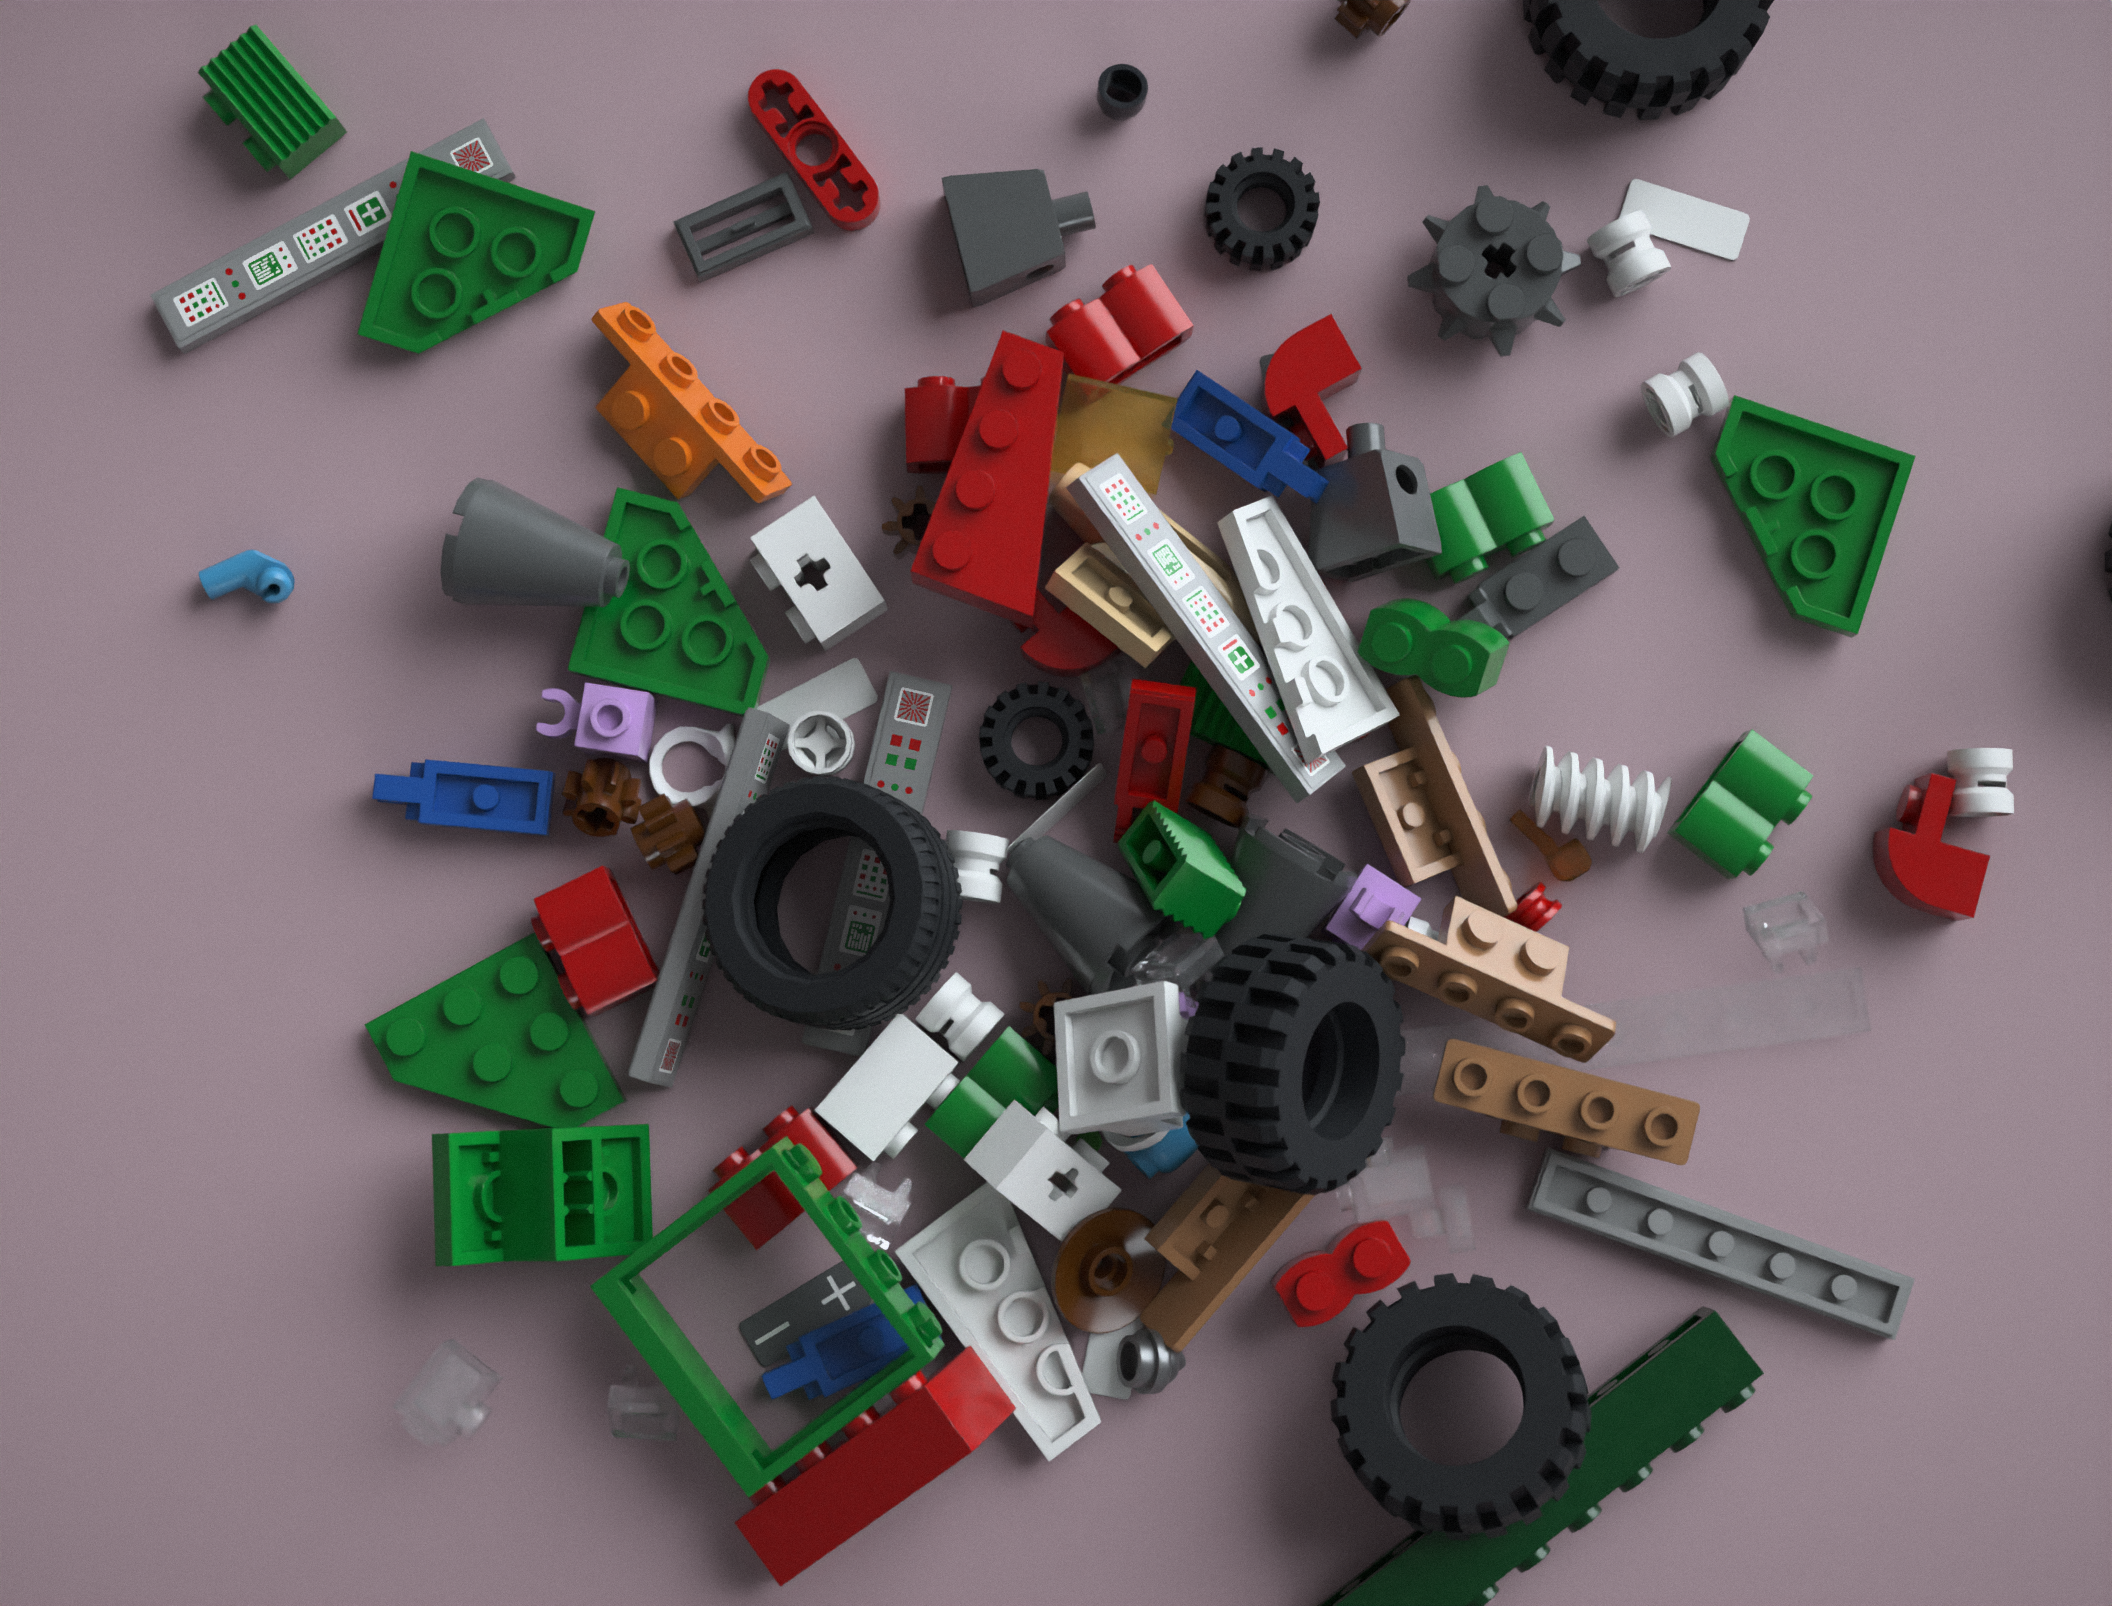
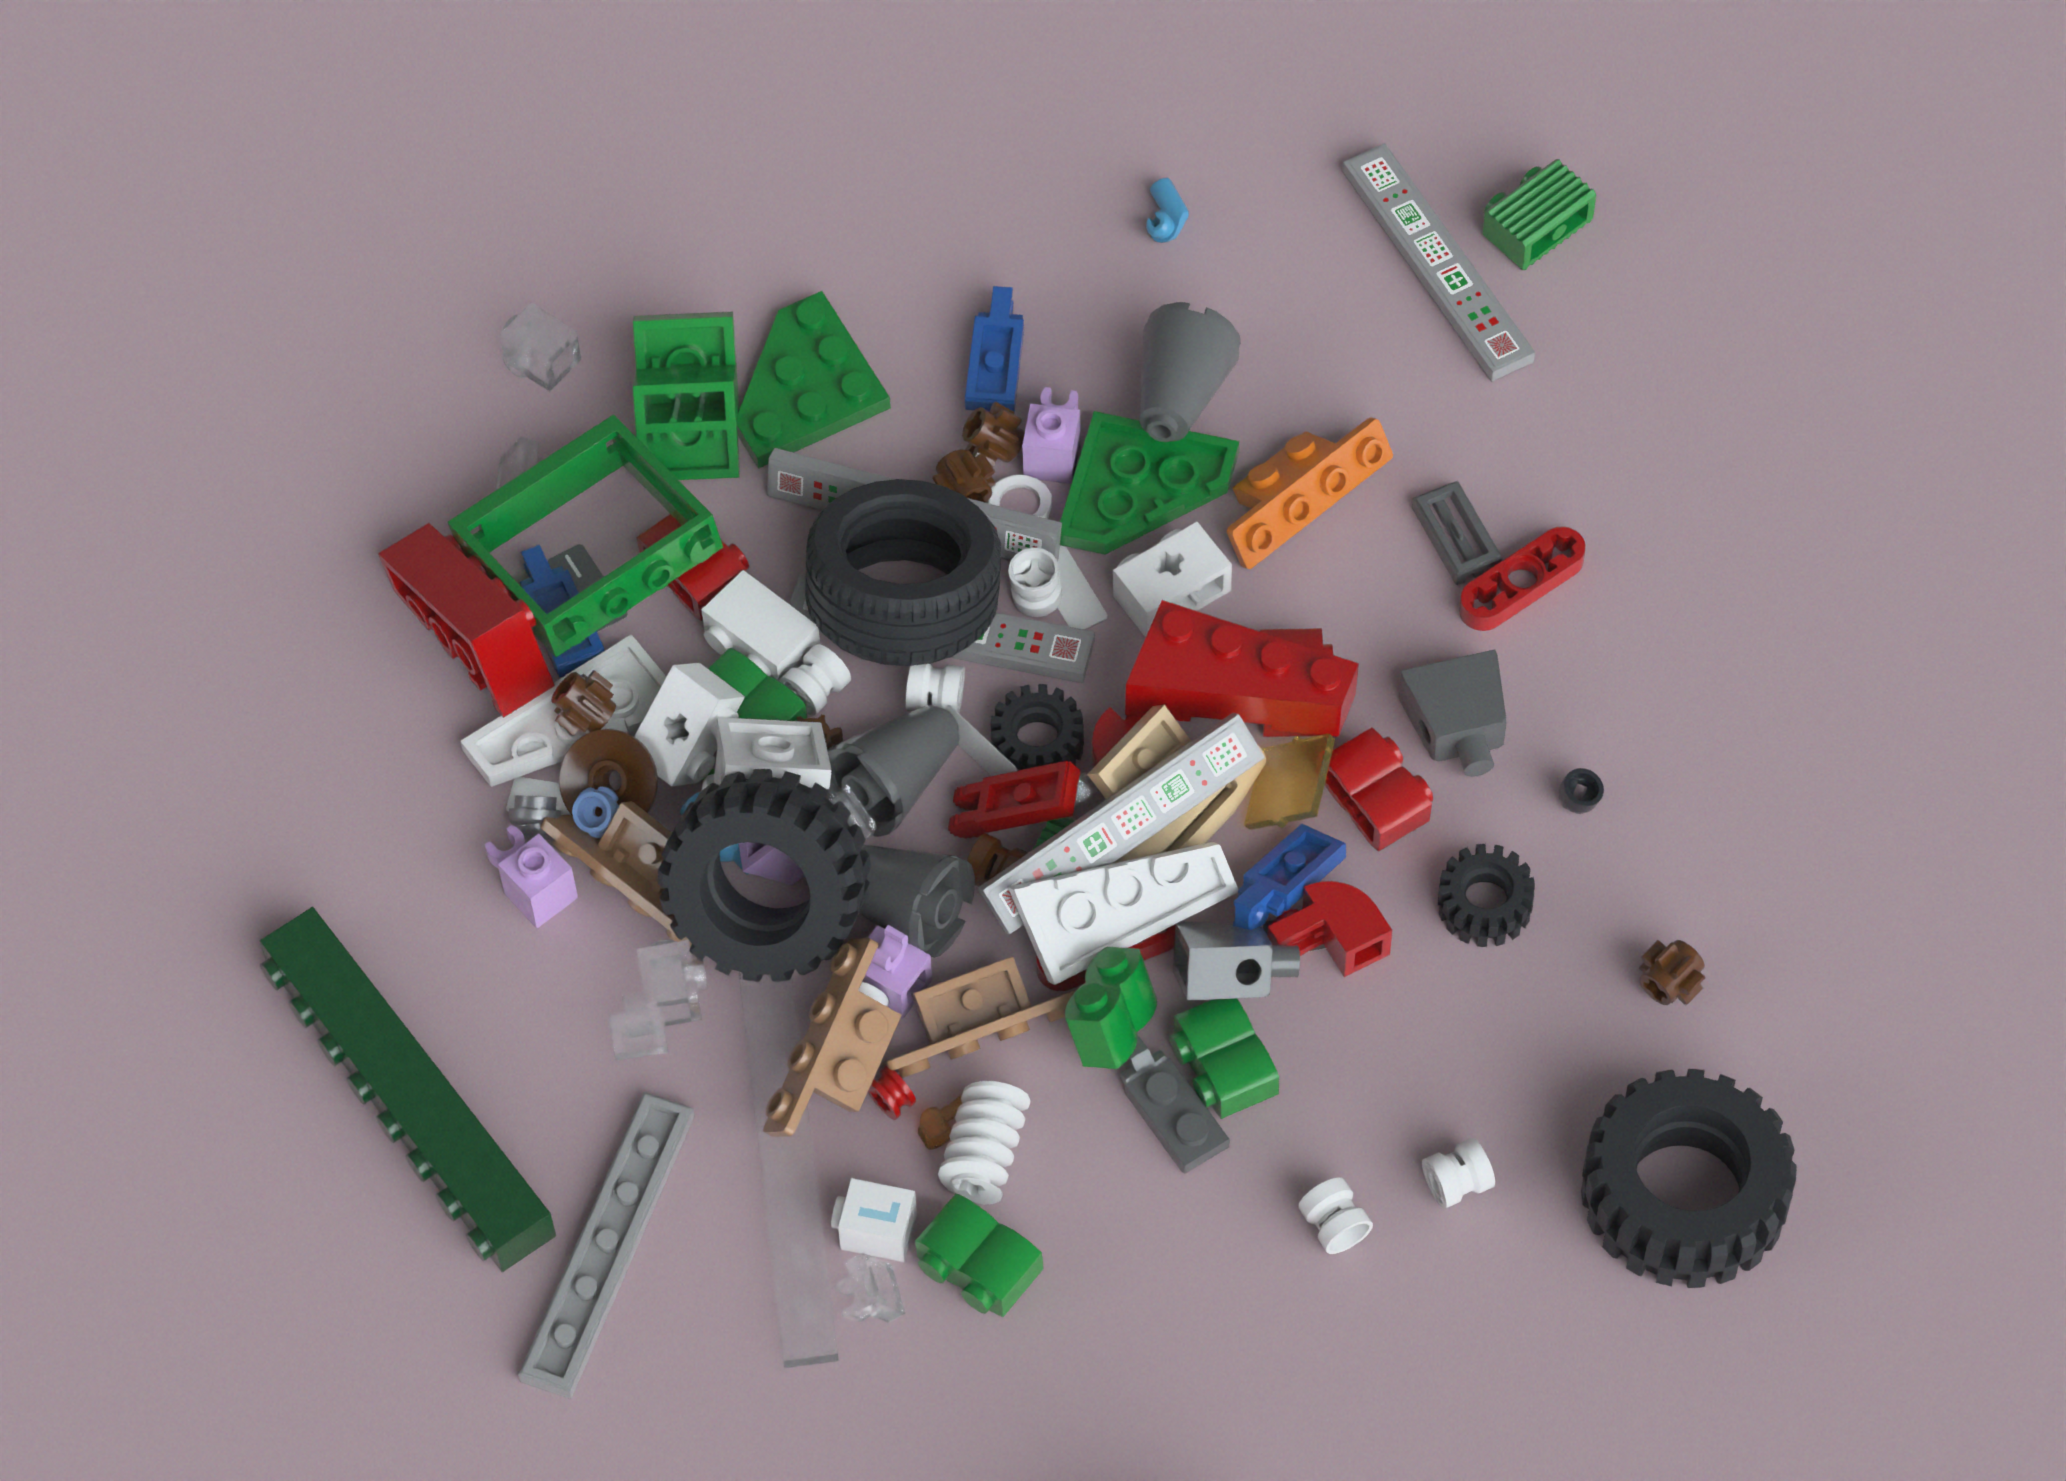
camera: 90 degrees right, 25 degrees down
(465, 252) = (1425, 339): green plate -> none
(596, 941) = (884, 435): red brick -> none
(877, 1207) = (664, 623): clear tile -> none
(1017, 1305) = (583, 702): none -> reddish brown gear
(1161, 1292) = (585, 806): none -> medium blue plate
(1181, 870) = (923, 811): green brick -> none
(1244, 1355) = (533, 876): none -> lavender brick
(1325, 1281) = (598, 945): red brick -> none
(1439, 1322) = (475, 1060): black tyre -> none
(1502, 234) = (1438, 1064): dark grey brick -> none
(1565, 1102) = (727, 1100): medium nougat bracket -> none
(1688, 219) = (1496, 1232): white sticker -> none
(1697, 926) = (875, 1219): none -> white brick
(1812, 506) = (1239, 1320): green plate -> none
(1919, 866) = (928, 1393): red brick -> none
(1985, 768) = (1009, 1448): white wheel -> none

